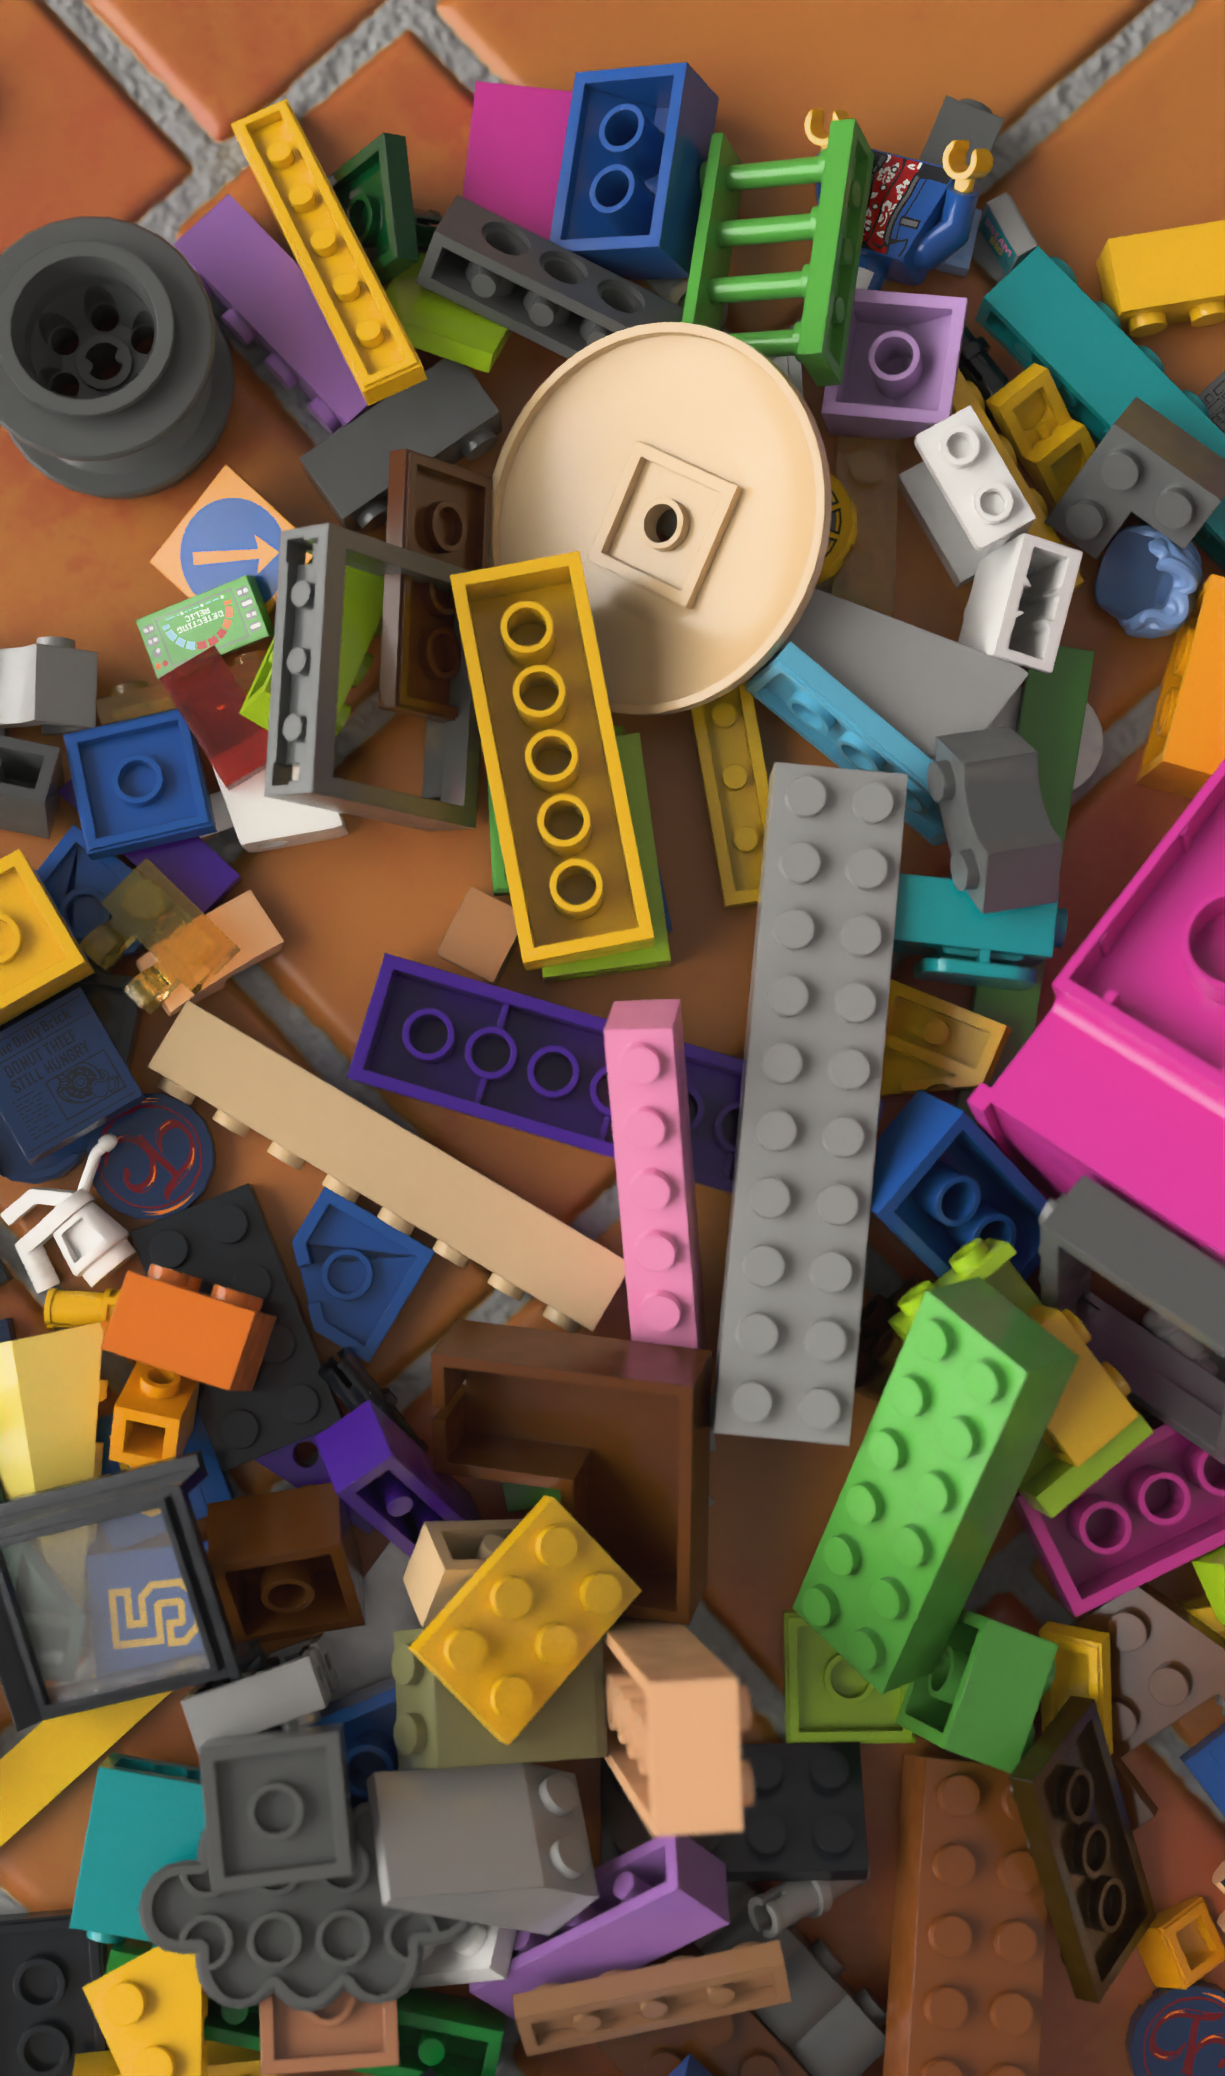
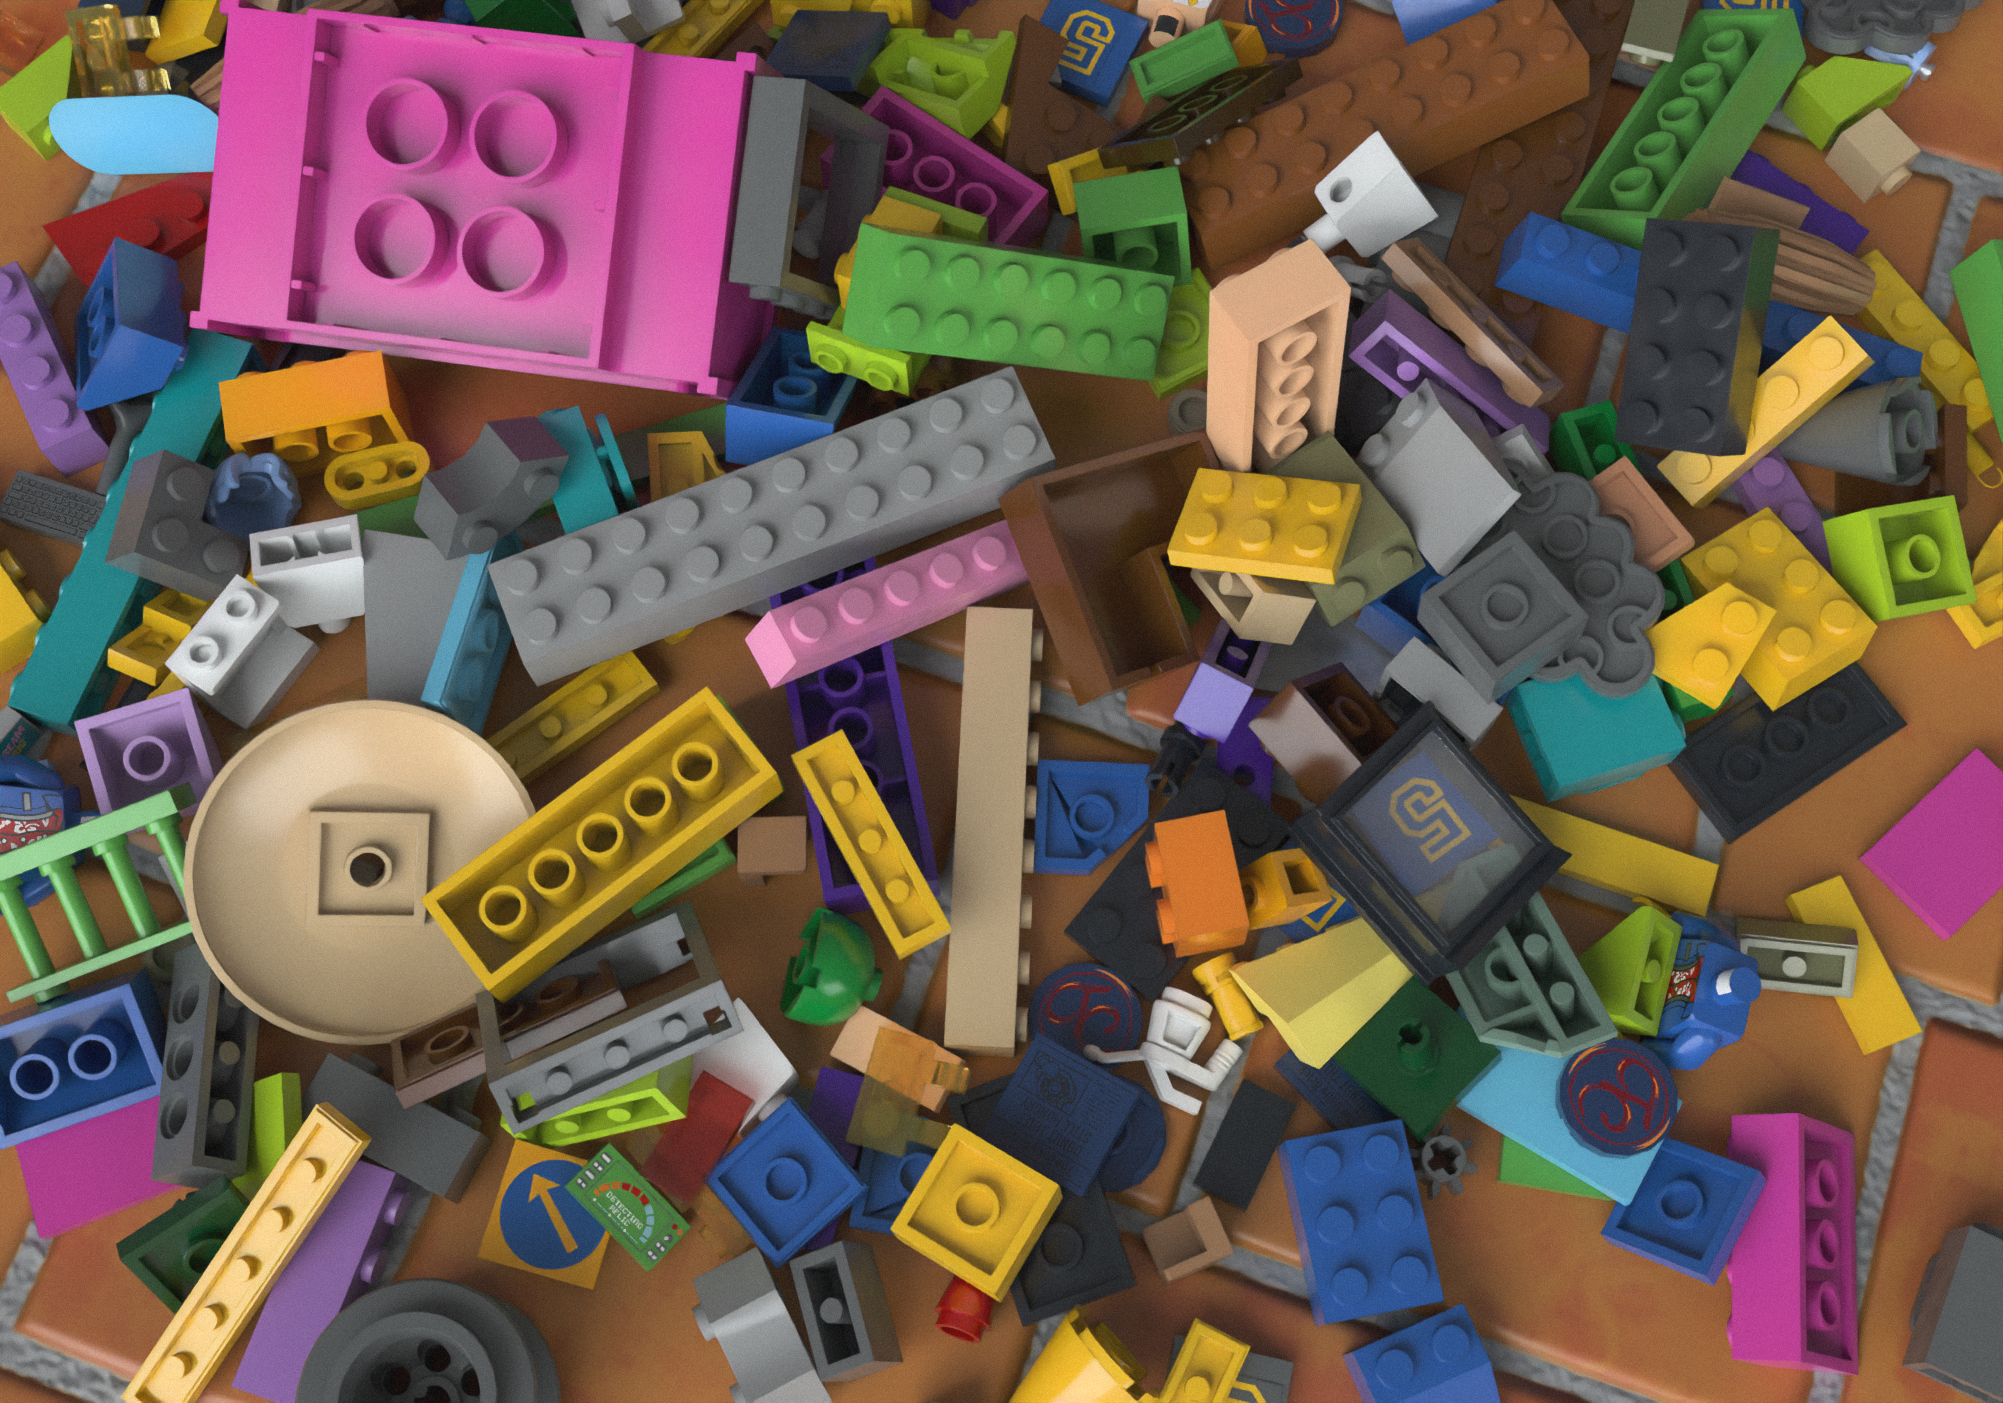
camera: 115 degrees left, 15 degrees down
(324, 928) = (831, 971): none -> green cylinder
(411, 1024) = (871, 844): none -> yellow plate
(741, 1635) = (1187, 411): none -> dark tan tile
(866, 1974) = (1369, 201): none -> white torso
(1120, 733) = (382, 474): none -> yellow plate
(1182, 1876) = (1184, 62): none -> bright green tile

